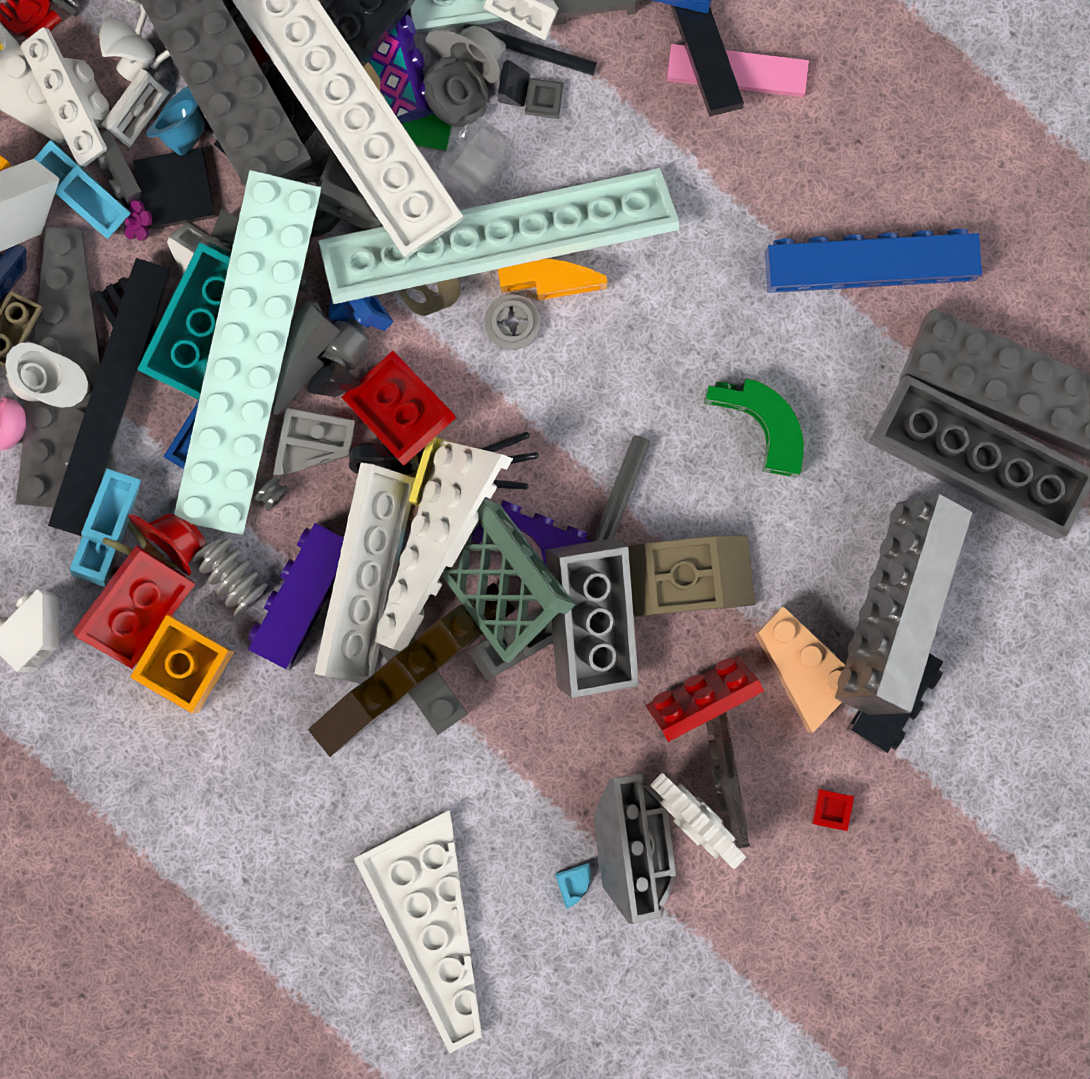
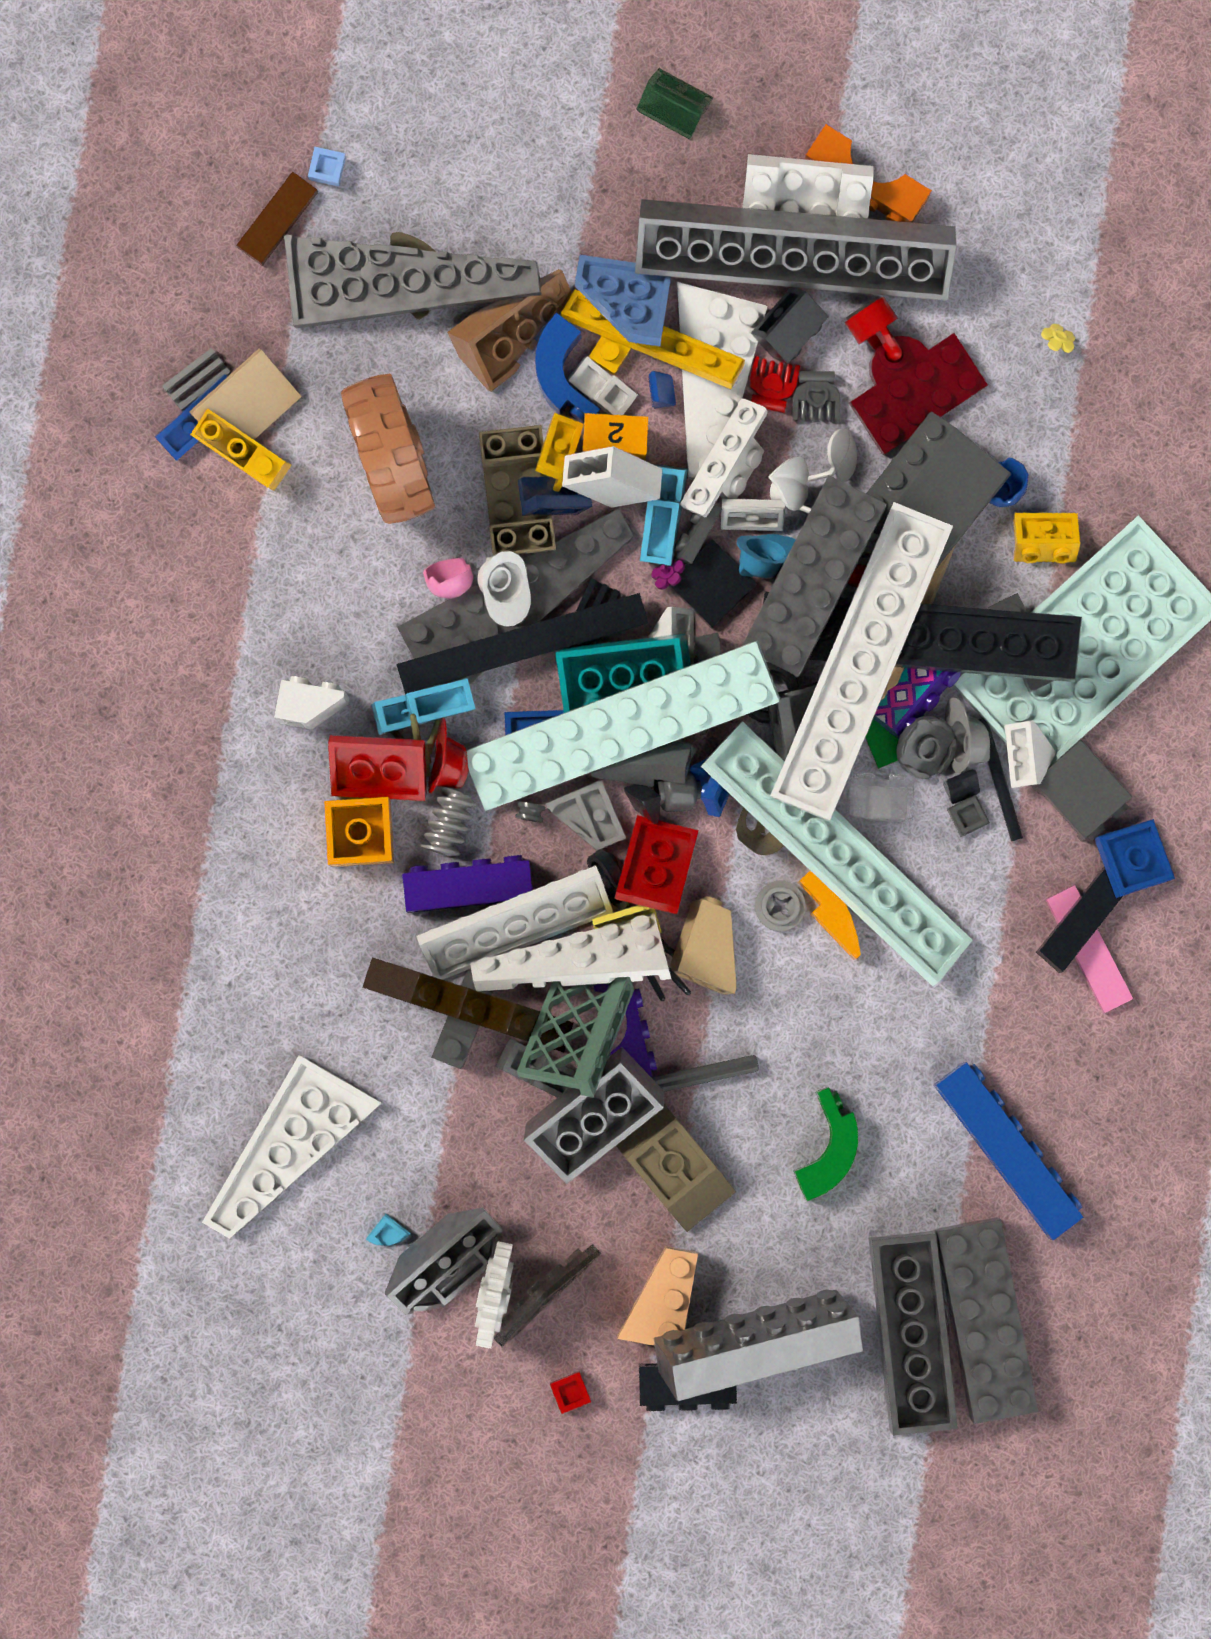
camera: 60 degrees right, 0 degrees up
(505, 412) = (707, 947): none -> tan slope
(703, 697) = (590, 1239): red plate -> none

